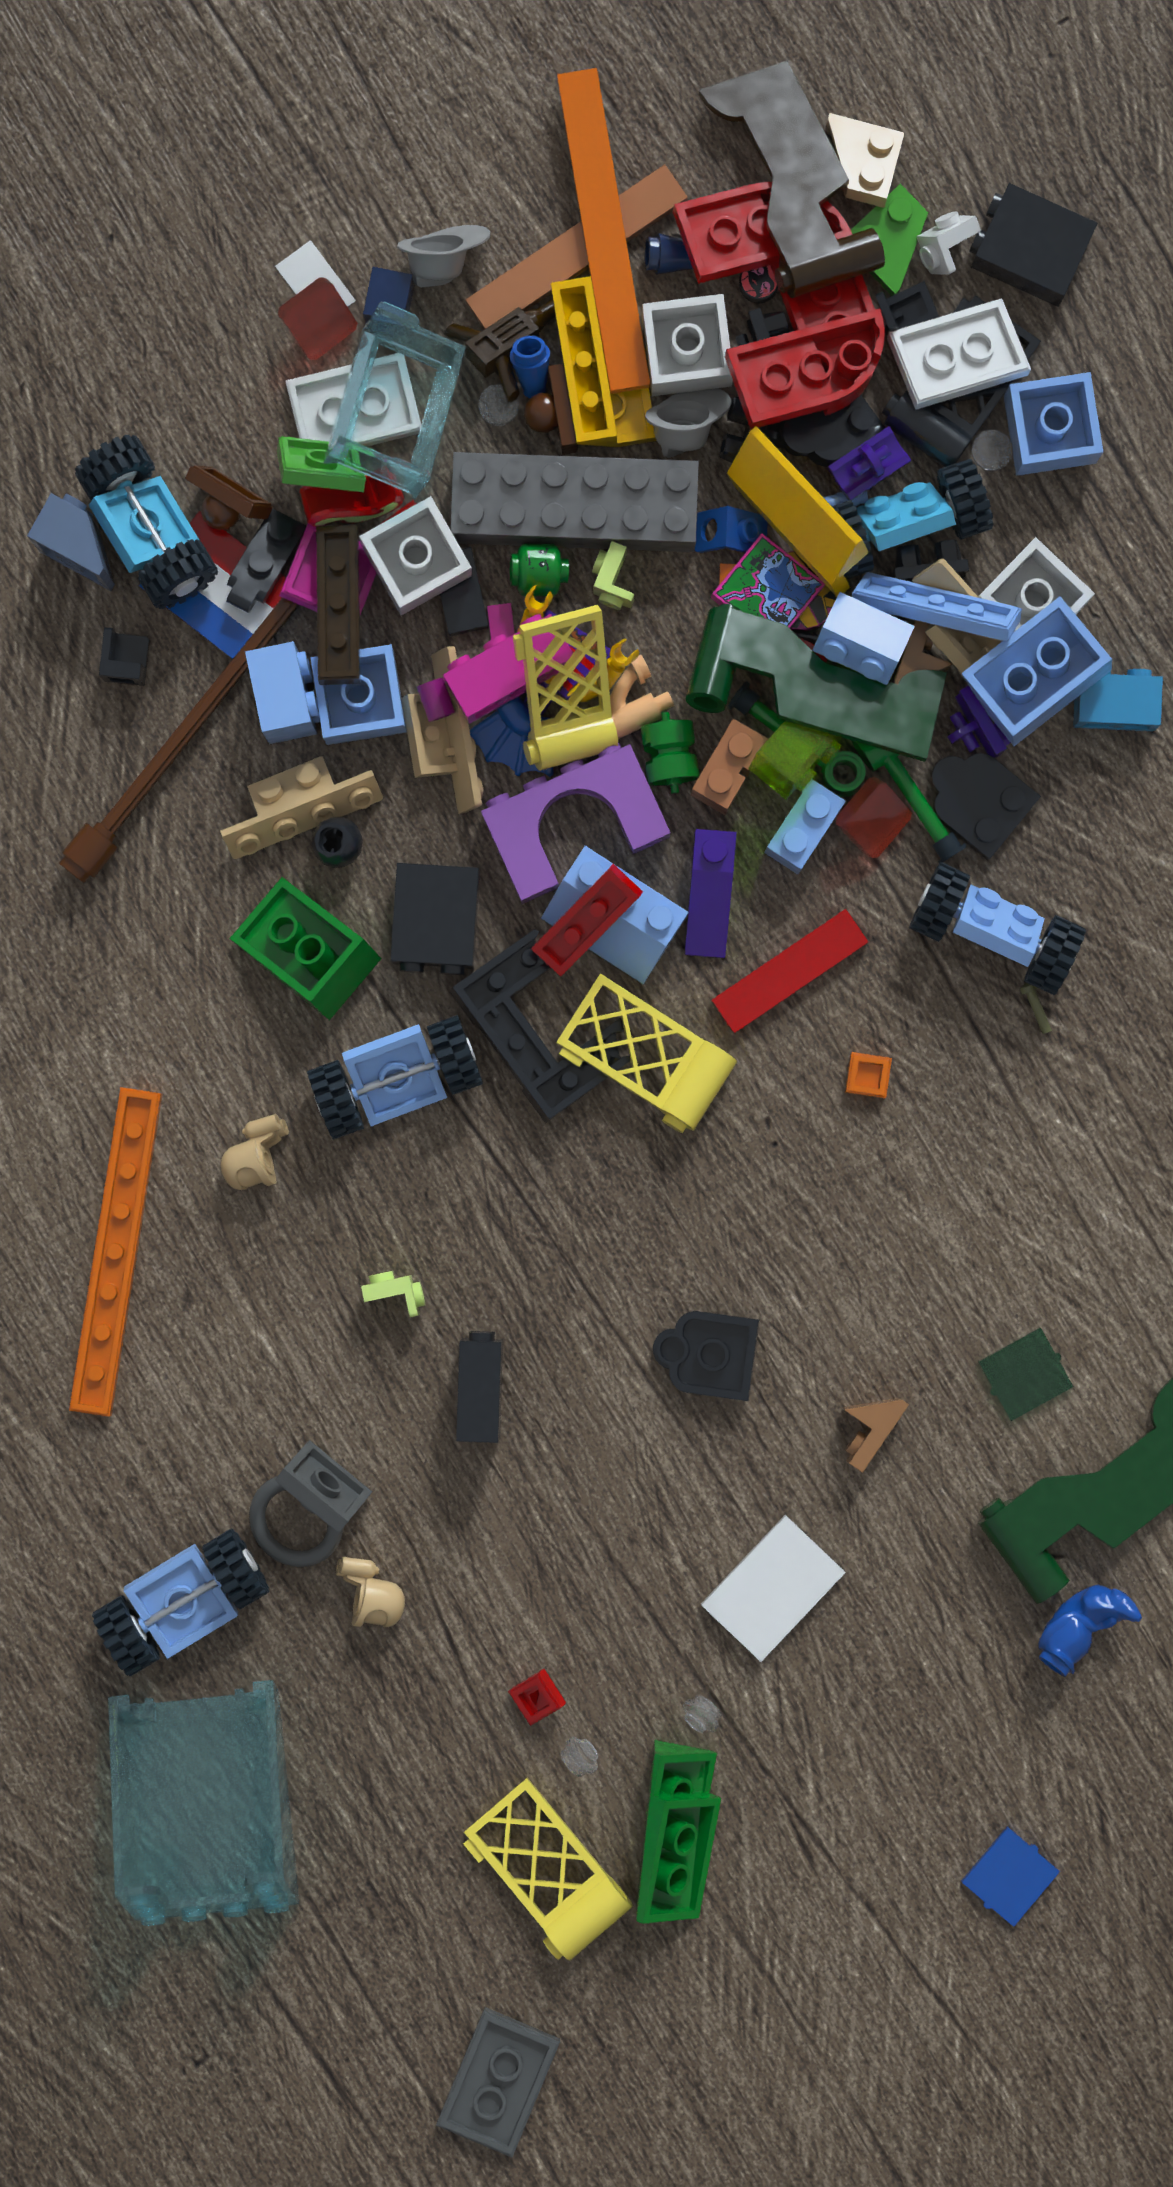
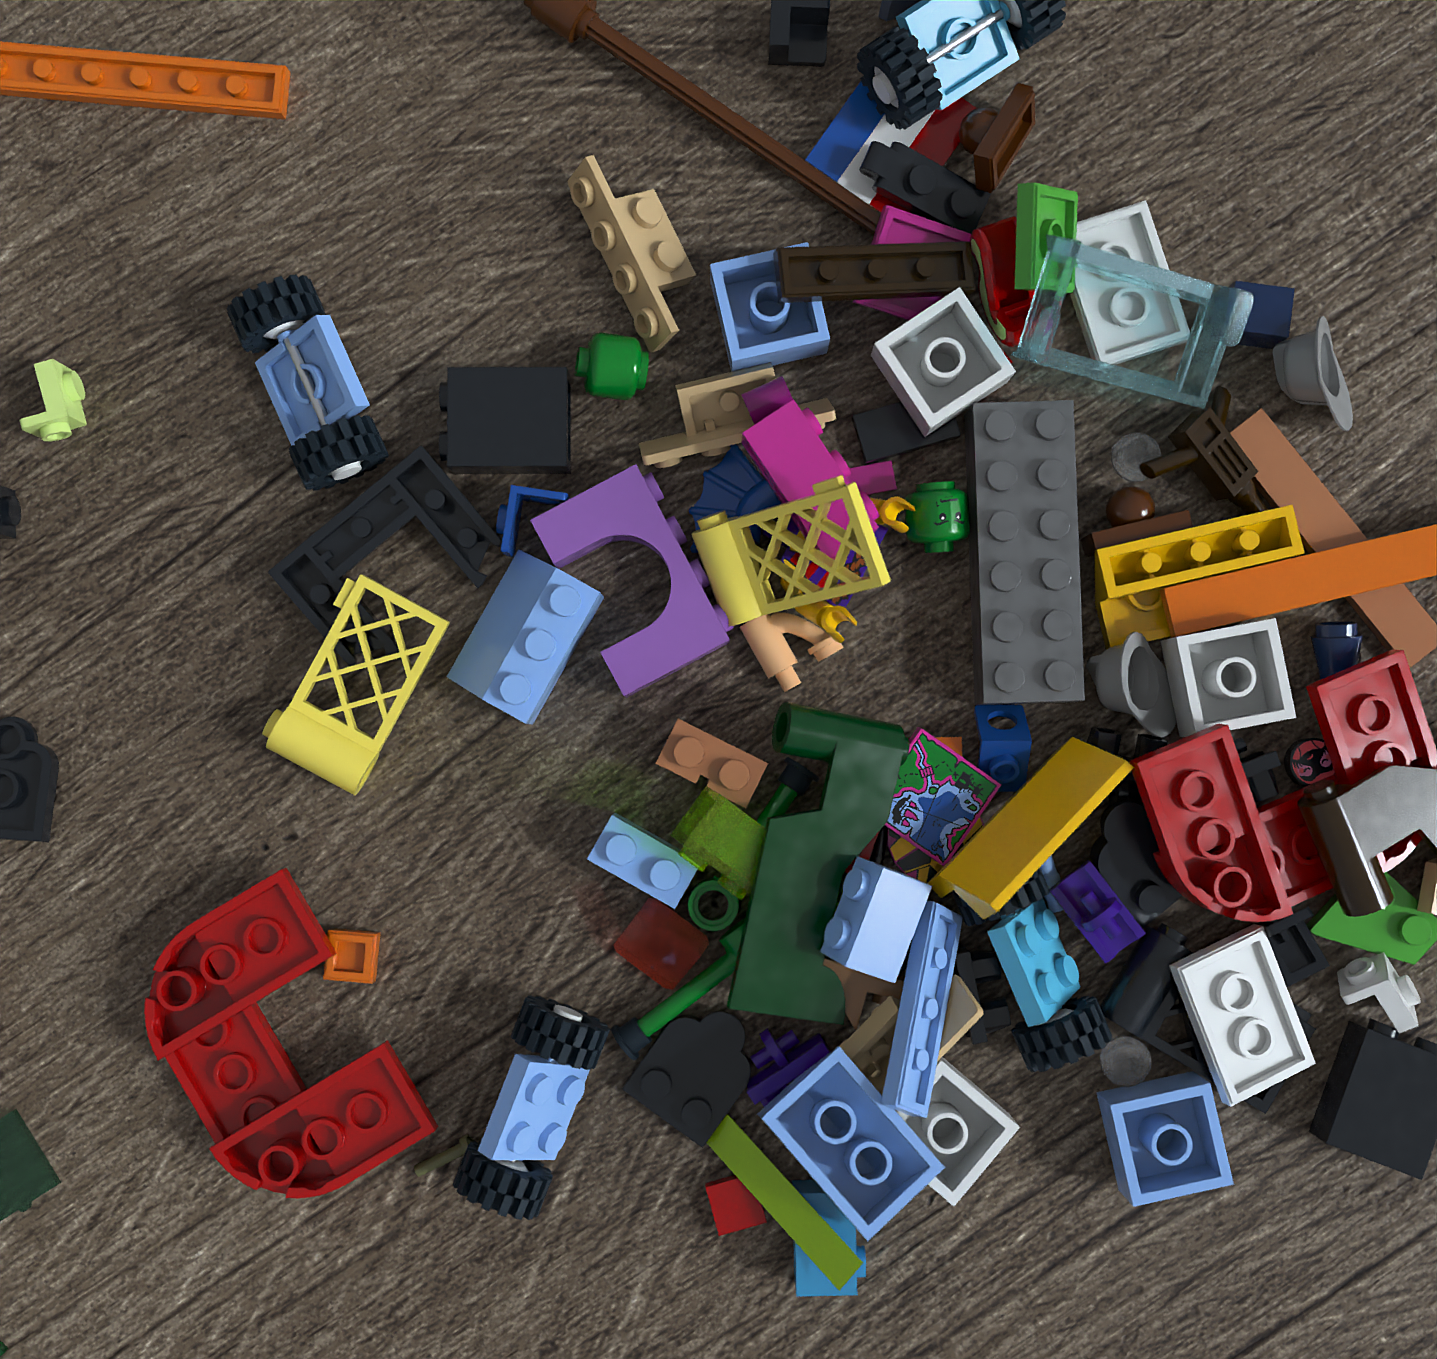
camera: 90 degrees right, 0 degrees up
(251, 1160) = (204, 226): tan piece -> none
(281, 692) = (764, 209): light blue brick -> none
(306, 948) = (460, 270): green slope -> none
(308, 265) = (1266, 231): white sticker -> none
(317, 318) = (1224, 229): clear red piece -> none
(337, 842) = (590, 297): black piece -> none
(395, 828) = (612, 366): none -> green head
(512, 920) = (509, 515): none -> blue bracket
(531, 363) = (1190, 488): blue cone -> none
(587, 920) = (506, 600): red plate -> none
(608, 567) = (946, 601): yellowish green bracket -> none
(669, 745) = (729, 689): green wheel -> none
(710, 893) = (558, 750): dark purple slope -> none
(789, 971) = (471, 852): red tile -> none
(958, 1170) = (235, 1069): none -> red plate
(1085, 731) = (784, 1203): none -> lime sticker
(1087, 773) = (733, 1205): none -> red tile

